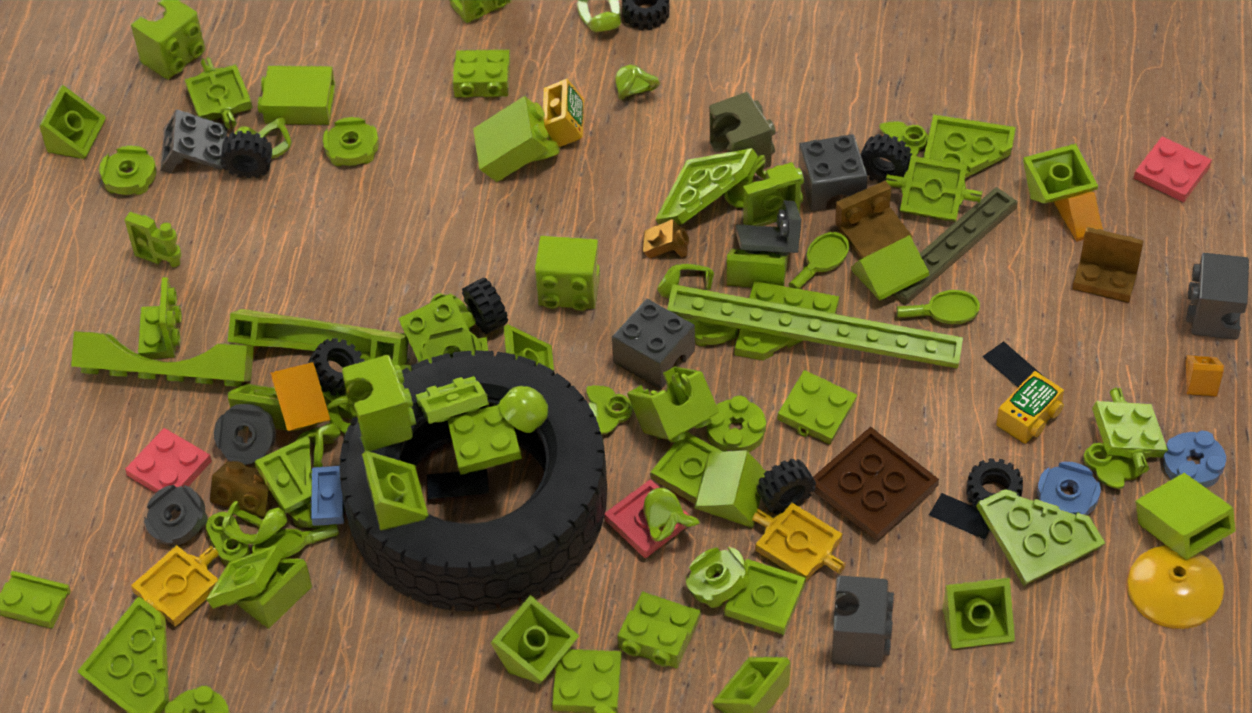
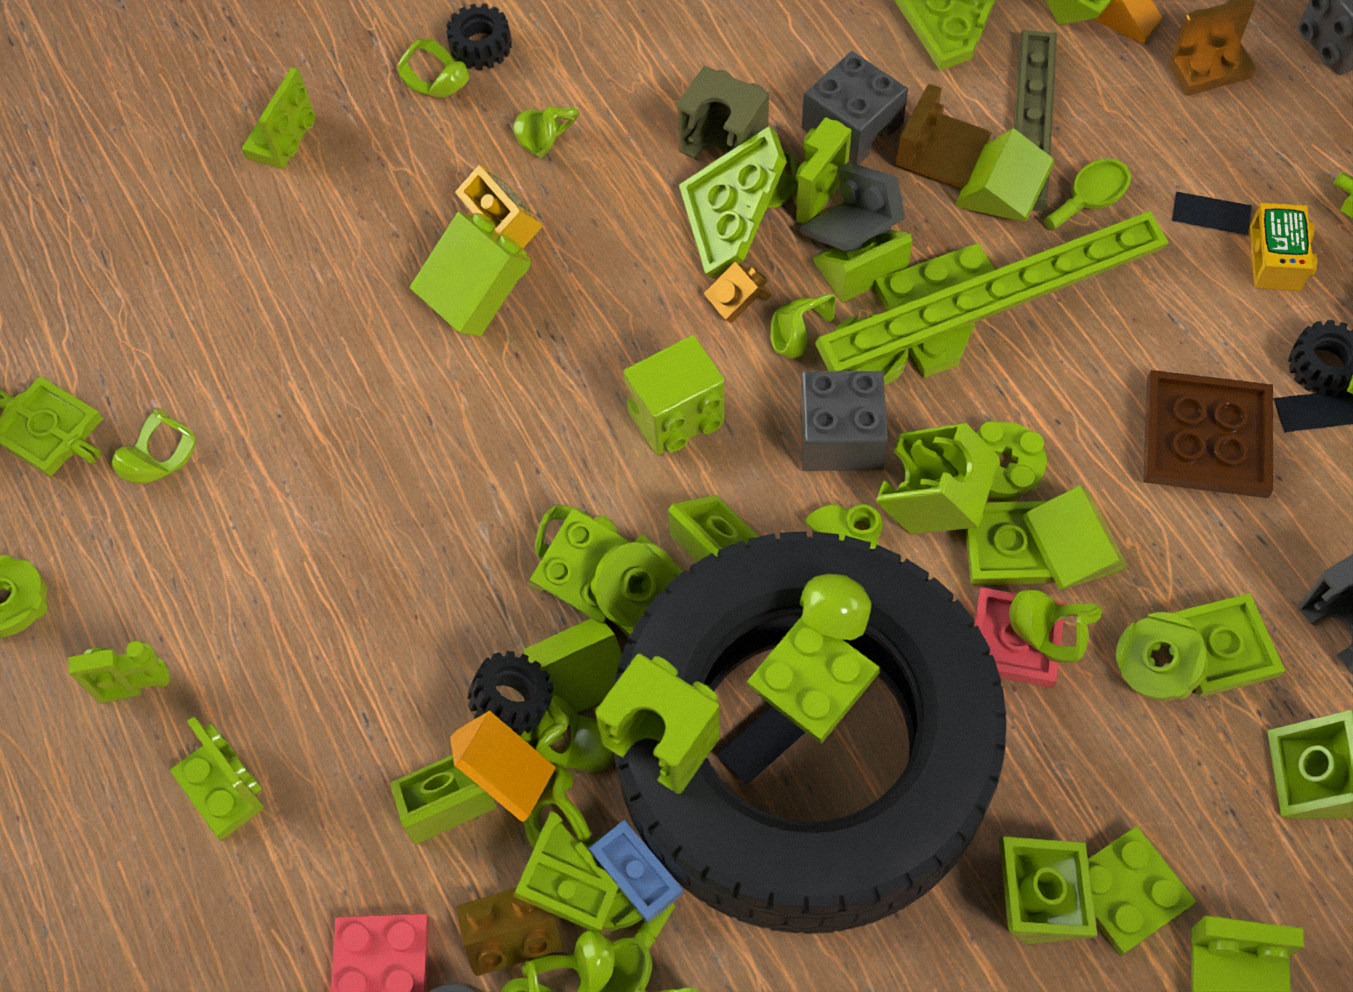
camera: 35 degrees left, 10 degrees up
(104, 351) = (174, 868): lime arch -> none
(192, 139) = (61, 505): dark grey bracket -> none
(234, 420) = (432, 845): dark grey plate -> none
(246, 154) = (151, 483): black tyre -> none
(284, 331) = (375, 691): lime arch -> none
(297, 94) = (150, 370): lime brick -> none
(352, 154) = (268, 409): lime plate -> none
(394, 491) = (772, 830): lime slope -> none
(452, 399) = (743, 658): lime plate -> none
(481, 73) = (355, 216): lime plate -> none
(485, 305) = (612, 494): black tyre -> none
(658, 630) = (1149, 768): lime plate -> none
(786, 485) = (1138, 498): black tyre -> none
(798, 541) = (1199, 554): yellow plate -> none
(816, 407) = (1069, 384): lime plate -> none
(822, 255) = (922, 208): lime piece -> none
(889, 149) = (900, 56): black tyre -> none
(912, 135) = (882, 35): lime plate -> none
(933, 188) = (971, 65): lime plate -> none

